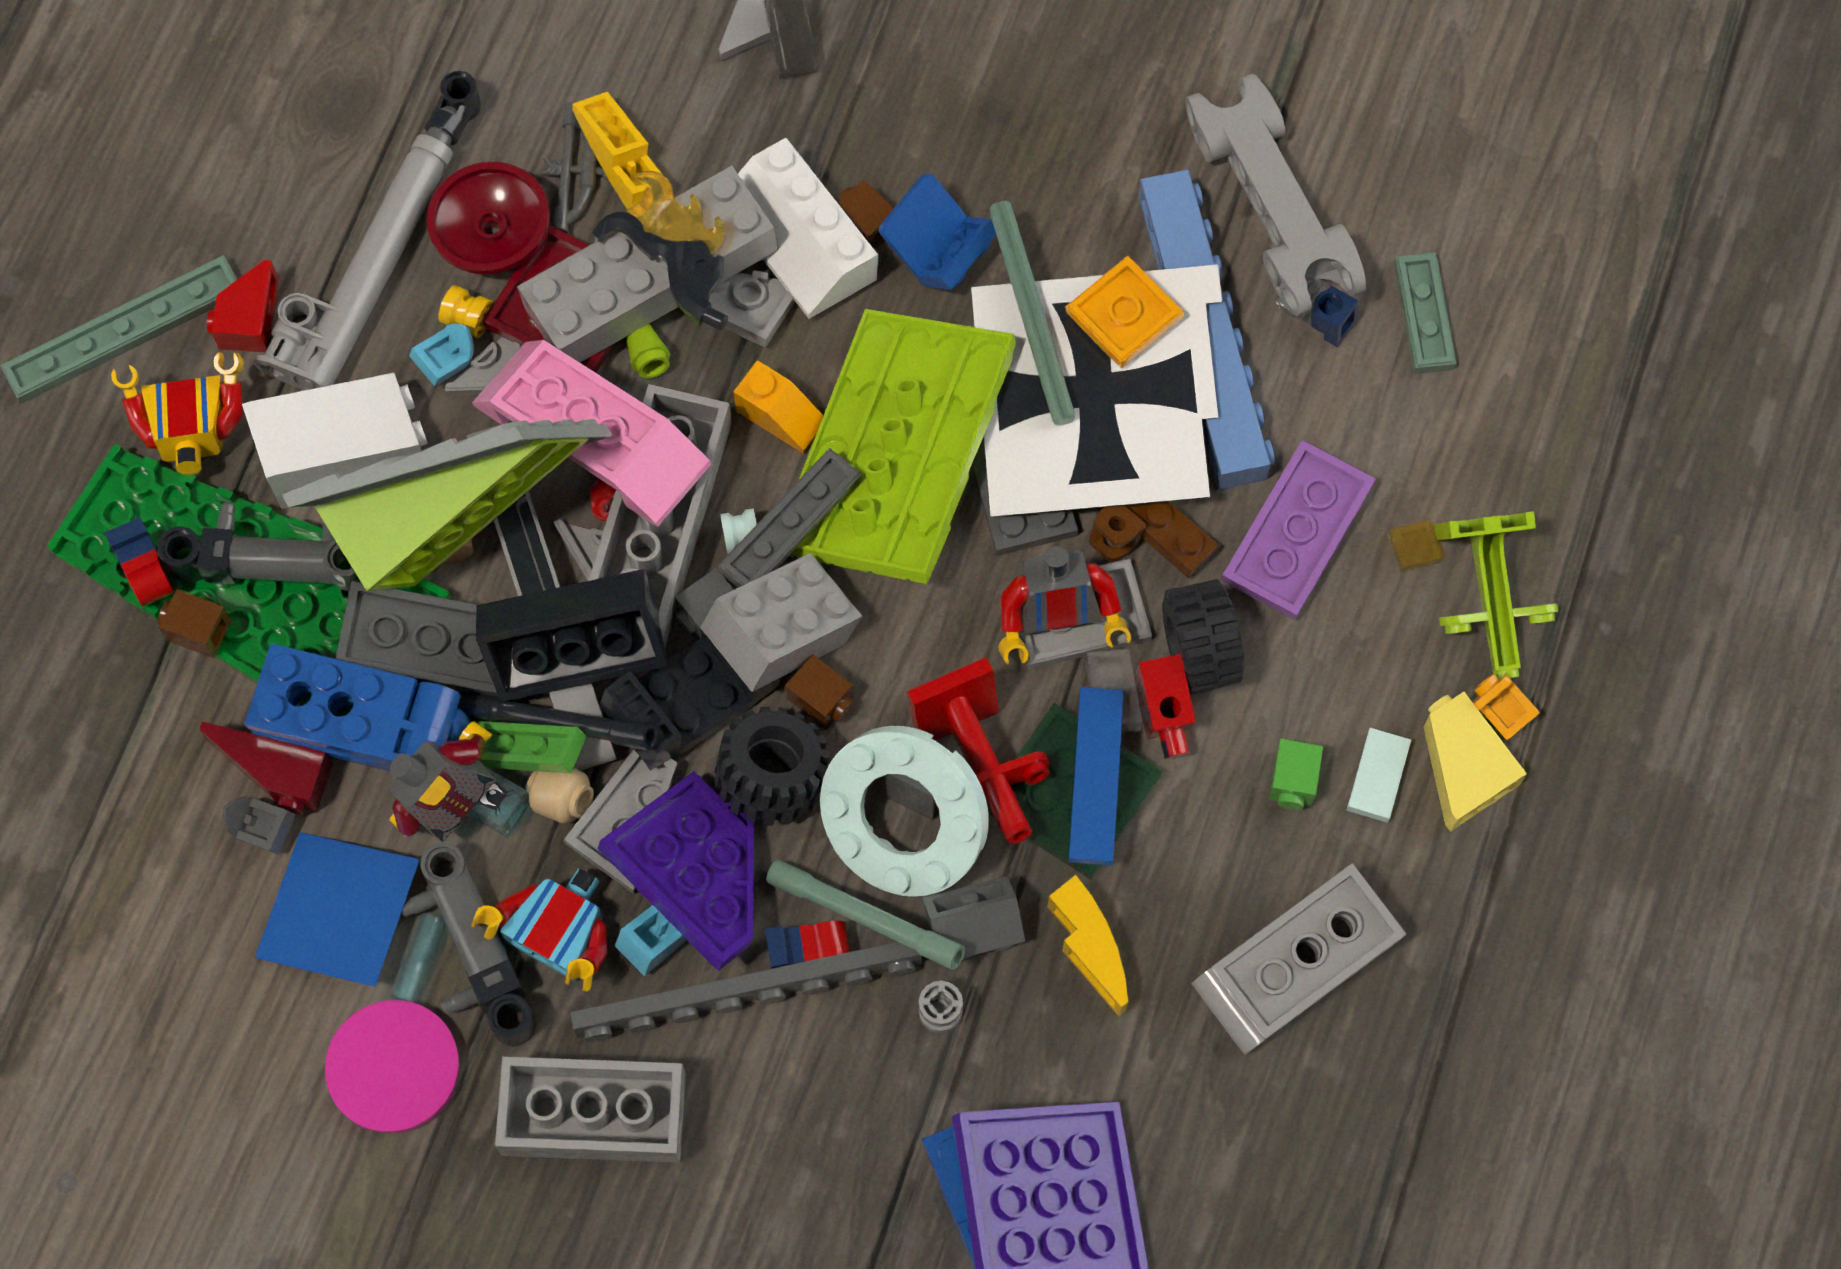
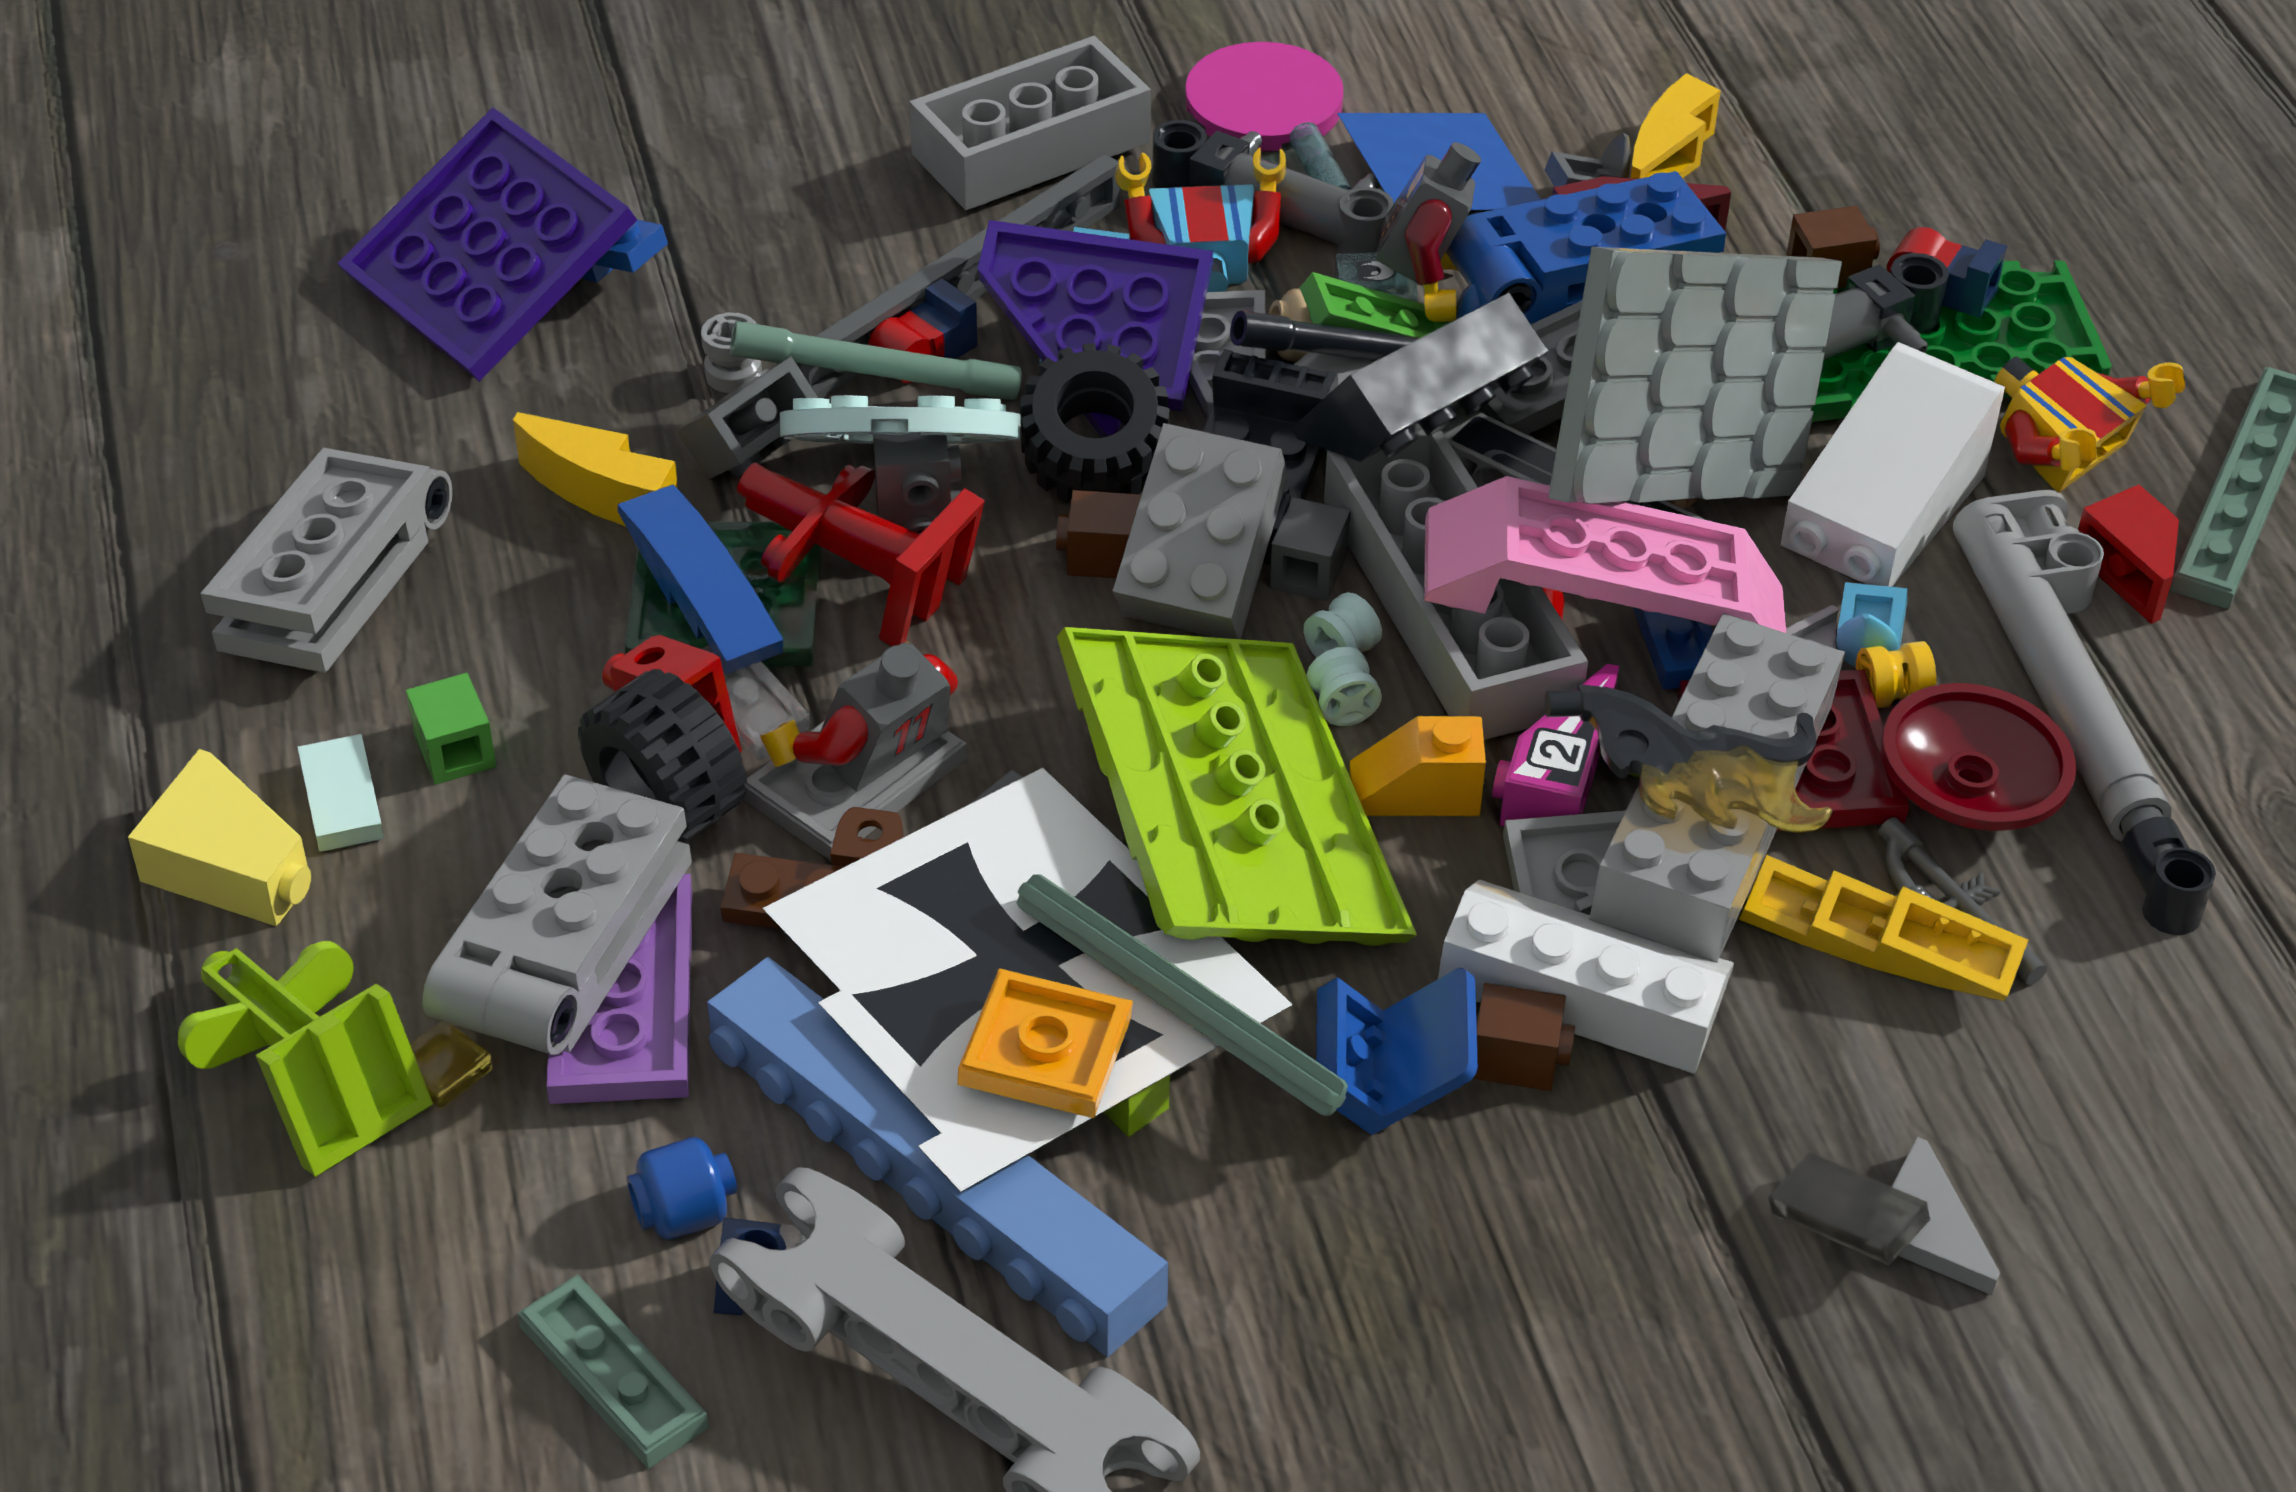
camera: 145 degrees right, 25 degrees down
(176, 824) = (1676, 129): none -> yellow slope
(700, 365) = (1552, 764): none -> dark pink slope
(771, 487) = (1344, 686): none -> light aqua wheel
(790, 520) = (1284, 636): dark grey tile -> none
(1339, 382) = (681, 1188): none -> blue head
(1349, 532) = (560, 917): none -> light grey hinge
(1504, 704) = (207, 922): light orange bracket -> none

